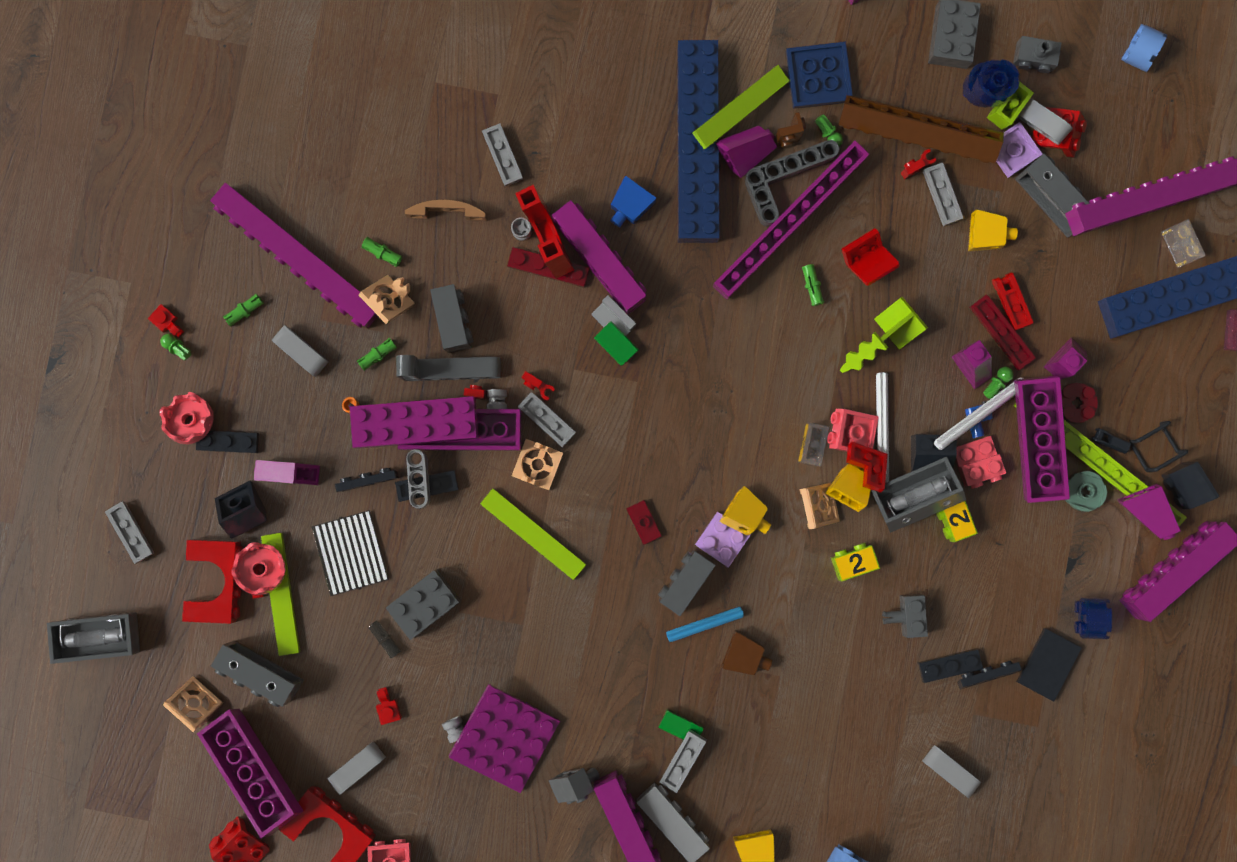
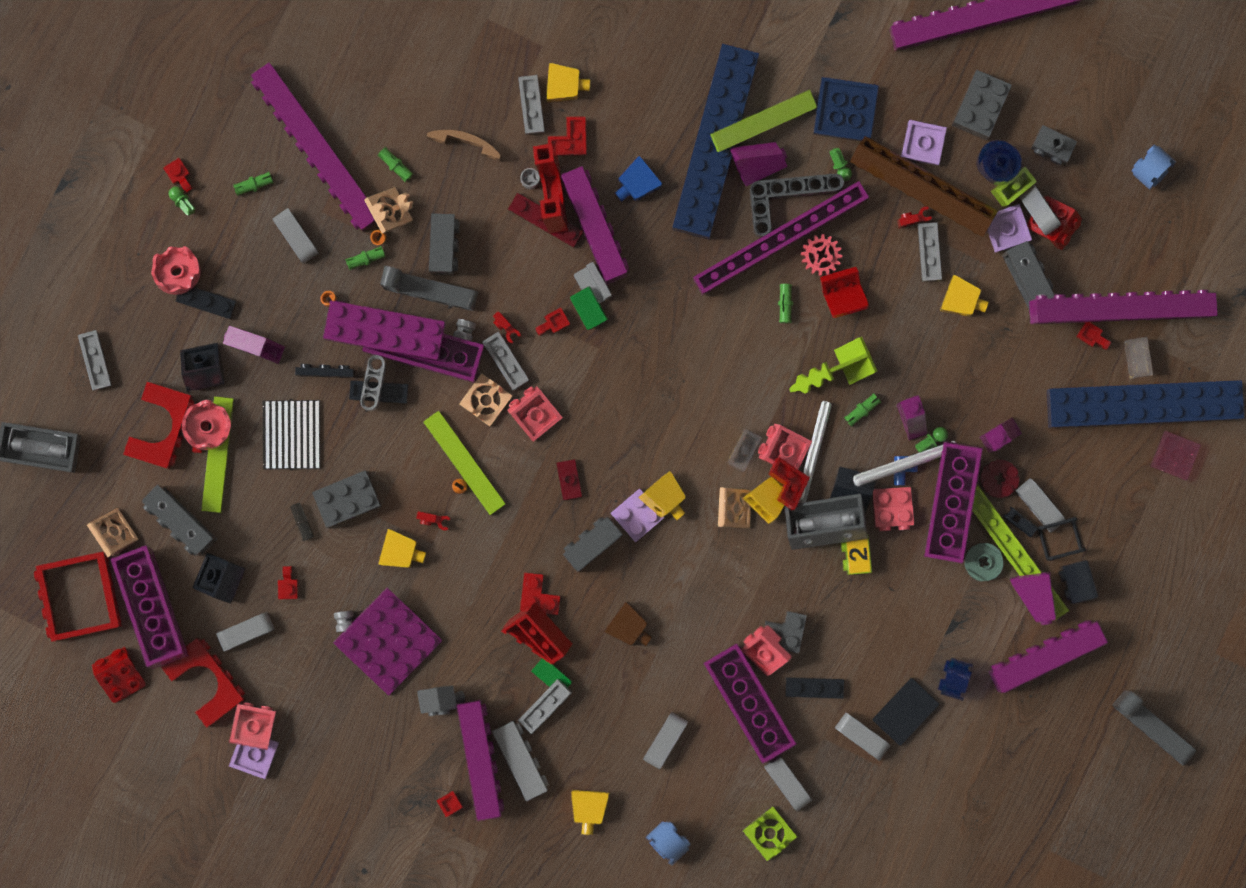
camera: 15 degrees right, 0 degrees up
(205, 764) = (109, 592): none -> red window
(315, 720) = (218, 578): none -> black slope
(380, 329) = (374, 235): none -> orange hinge
(475, 391) = (447, 317): red plate -> none
(491, 642) = (400, 551): none -> yellow torso
(511, 600) = (427, 519): none -> red plate
(530, 124) = (564, 83): none -> yellow torso
(536, 554) = (456, 489): none -> orange hinge
(556, 178) = (575, 142): none -> red plate
(586, 366) = (555, 321): none -> red plate
(590, 464) = (534, 413): none -> coral plate
(640, 653) = (532, 593): none -> red plate
(656, 687) = (539, 633): none -> red wedge
(705, 624) = (599, 588): dark azure axle -> none
(788, 135) = (799, 159): reddish brown bracket -> none
(815, 761) = (665, 740): none -> light grey beam
(827, 225) = (829, 258): none -> coral gear
(854, 562) = (752, 569): brick -> none
(891, 701) = (749, 703): none -> magenta brick
(892, 642) = (765, 650): none -> coral plate
(906, 86) = (923, 142): none -> lavender plate
(919, 371) = (862, 410): none -> bright green pin
(935, 818) = (788, 833): none -> lime piece
(988, 674) = (846, 704): black plate -> none
(1002, 332) = (948, 394): dark red plate -> none
(1012, 301) = (966, 369): red plate -> none
(1013, 702) = (862, 736): none -> light grey beam
(1125, 417) = (1039, 504): none -> light grey beam
(1128, 233) = (1091, 334): none -> red plate

